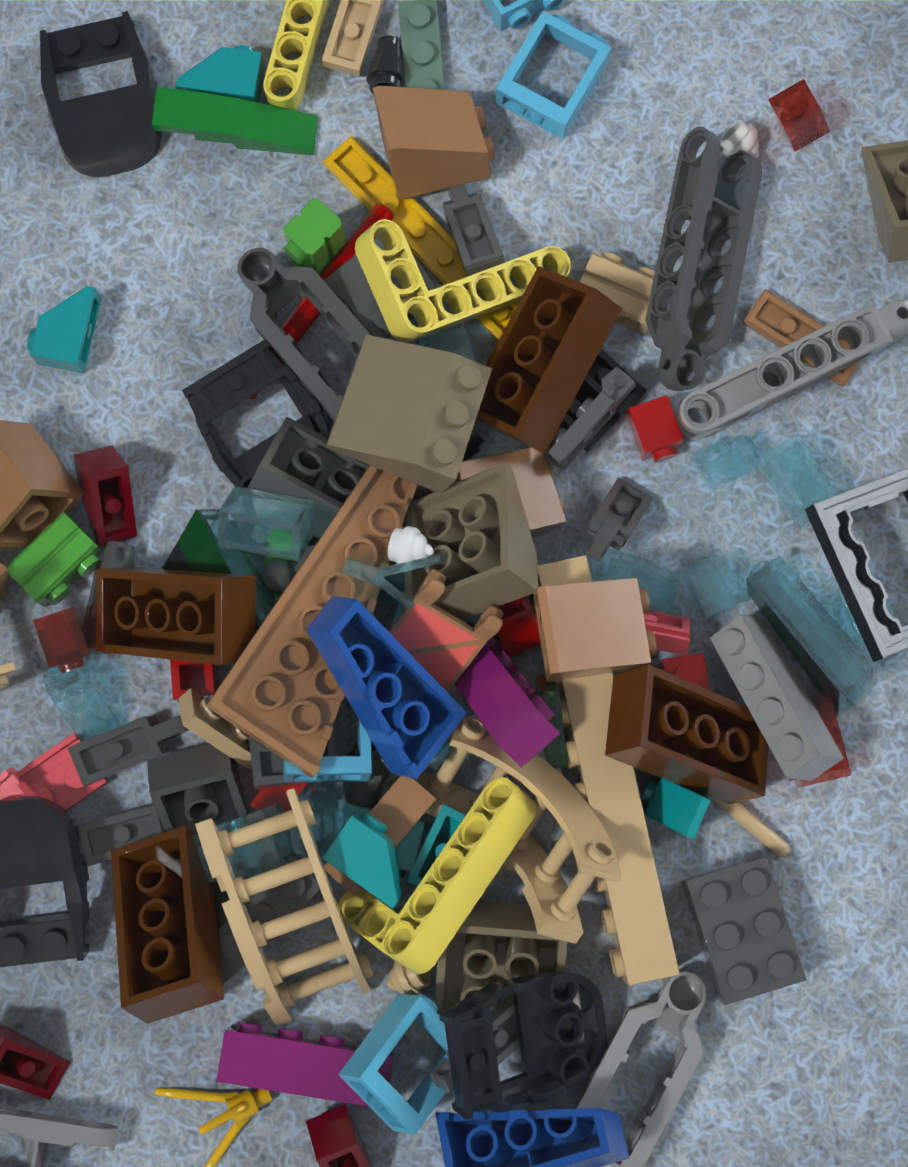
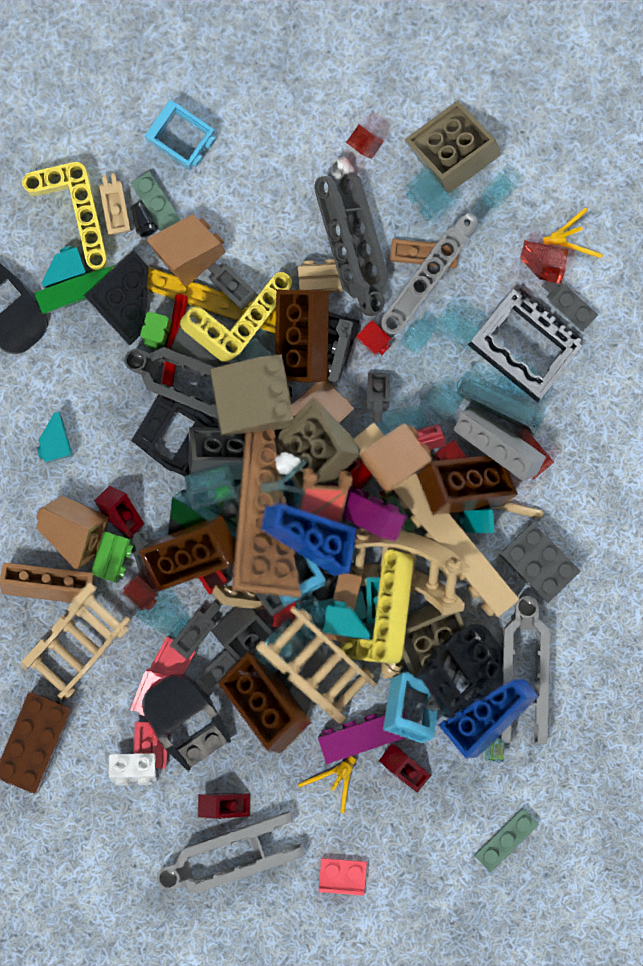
camera: 30 degrees left, 5 degrees up
(291, 161) = (122, 296): none -> black plate
(536, 107) = (229, 204): medium azure window -> none
(858, 252) = (429, 196): none -> clear light blue brick

